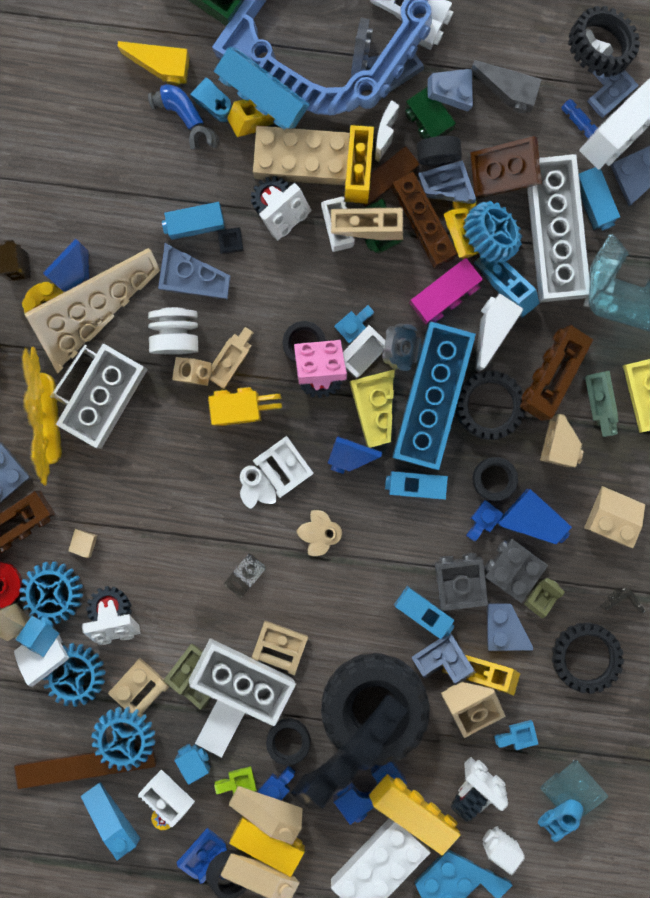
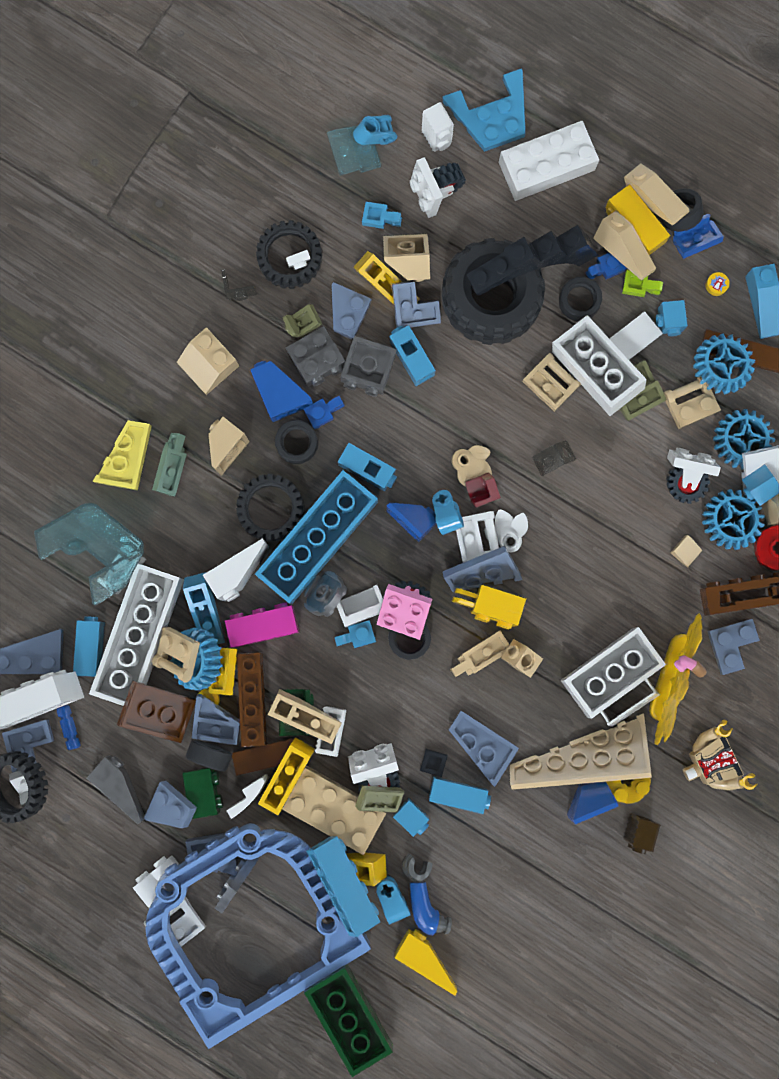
camera: 160 degrees left, 5 degrees down
(35, 430) = (696, 667): none -> bright pink arm
(166, 798) = (708, 297): white brick -> none
(173, 331) = (523, 700): white wheel -> none
(228, 181) = (411, 818): none -> dark azure brick
(262, 440) = (483, 569): none -> sand blue wing
(264, 181) = (379, 799): none -> olive plate
(299, 513) = (482, 489): none -> dark red panel
(322, 475) = (447, 512): none -> dark azure piece
(356, 804) = (542, 220): blue arch -> none
(374, 406) = (372, 555): light yellow wing -> none
(415, 814) = (499, 189): yellow brick -> none
(509, 233) = (180, 647): none -> tan plate
(544, 403) = (177, 530): reddish brown brick -> none
(575, 654) = (298, 260): none -> white plate

